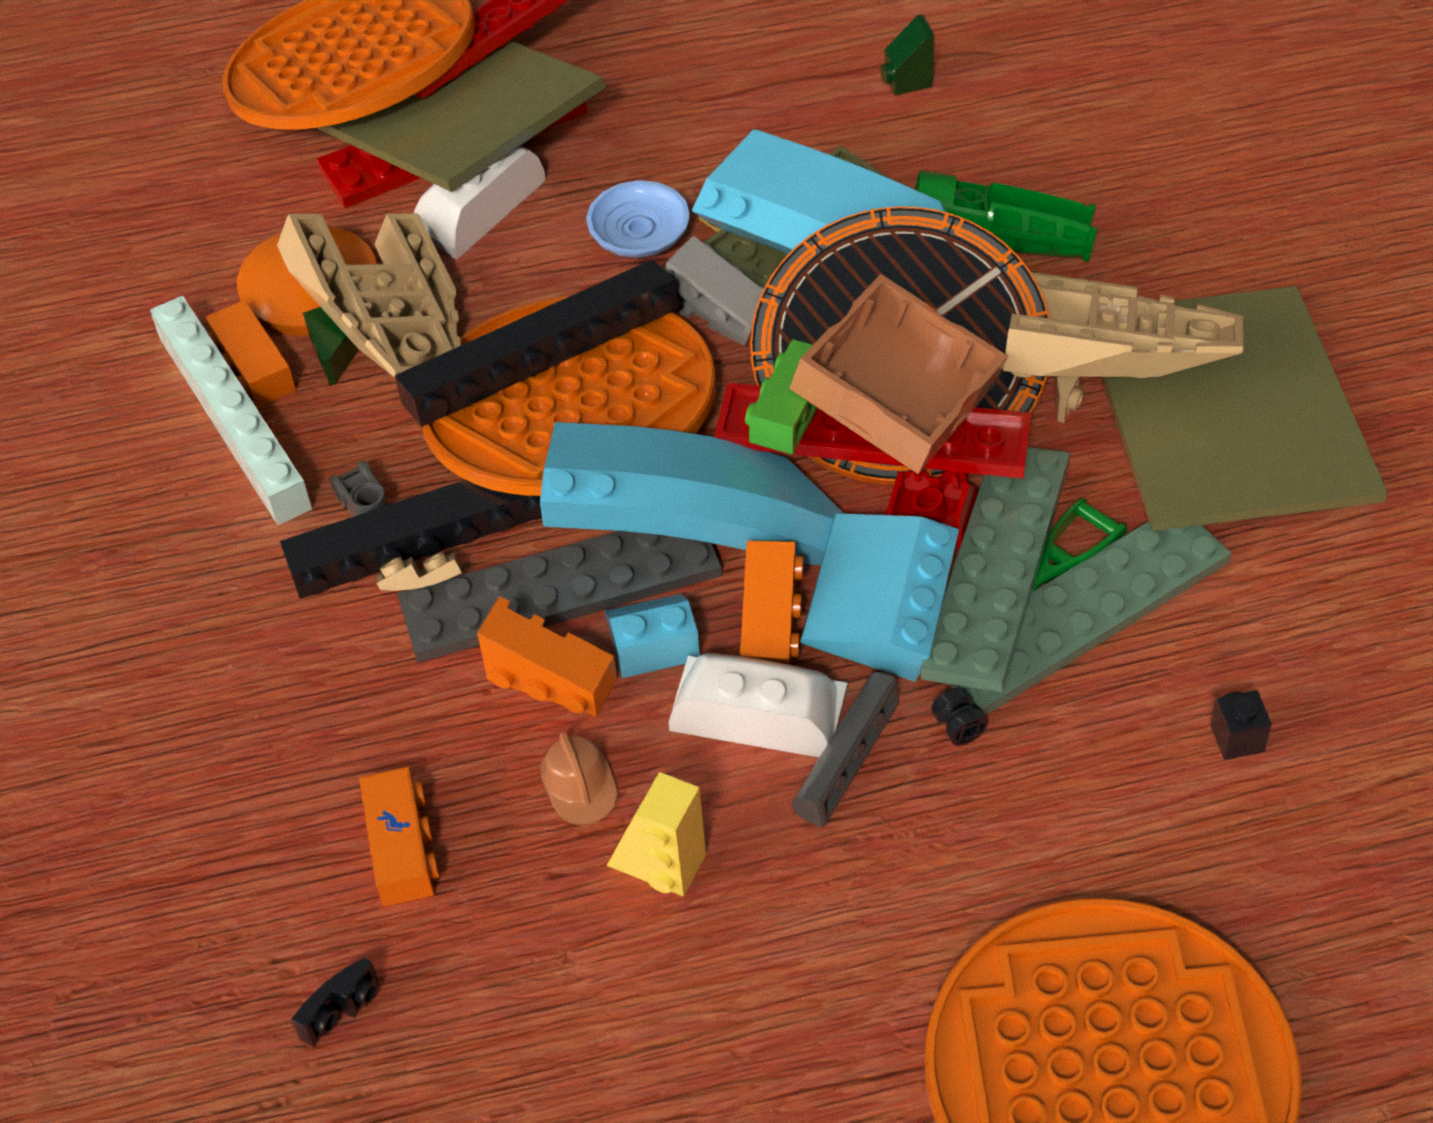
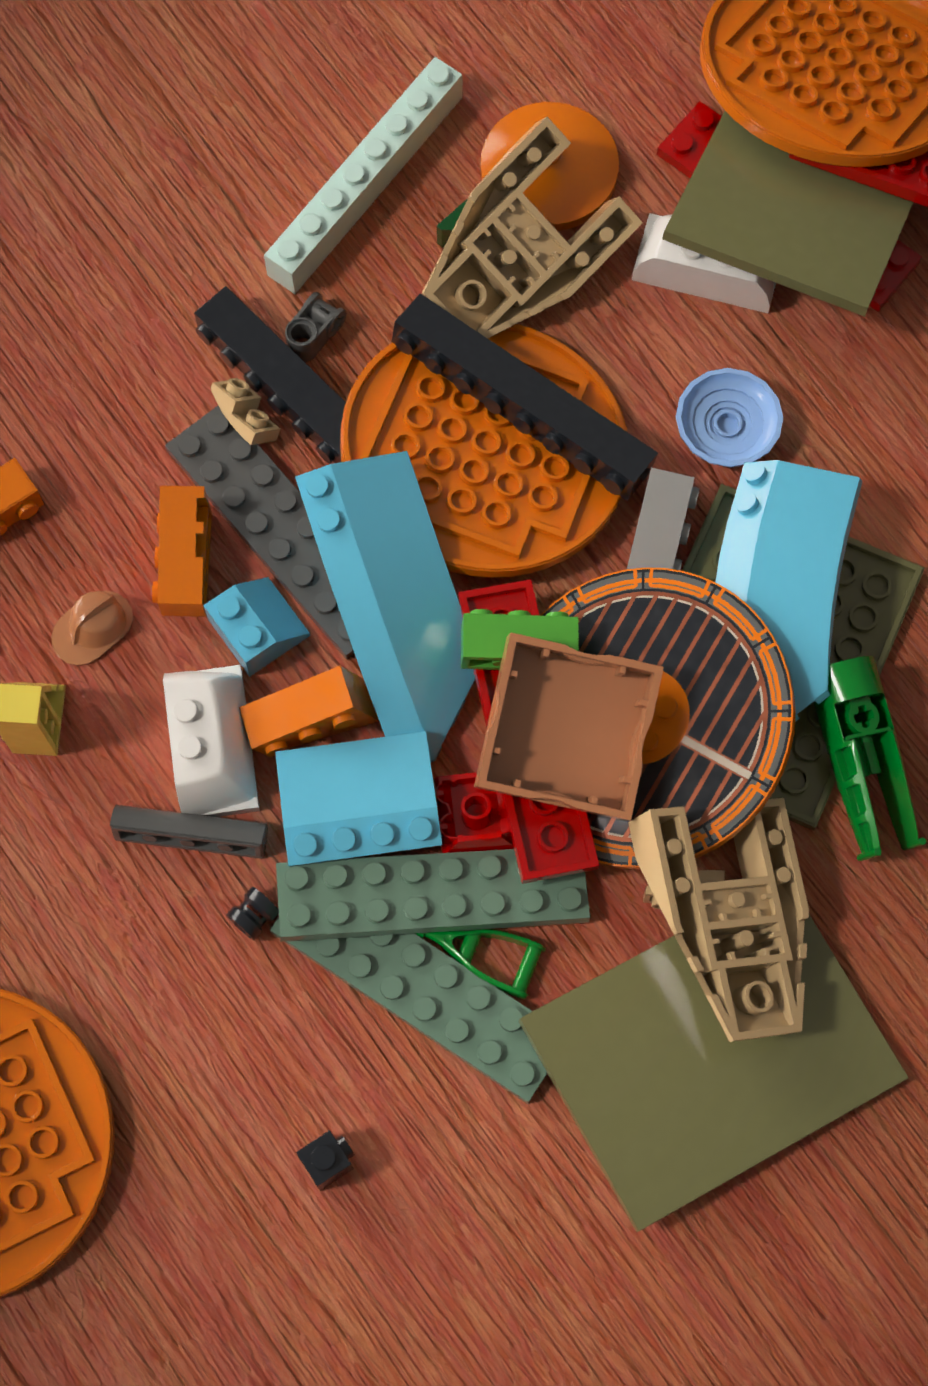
camera: 65 degrees right, 20 degrees up
(250, 353) = (433, 160): orange brick -> none

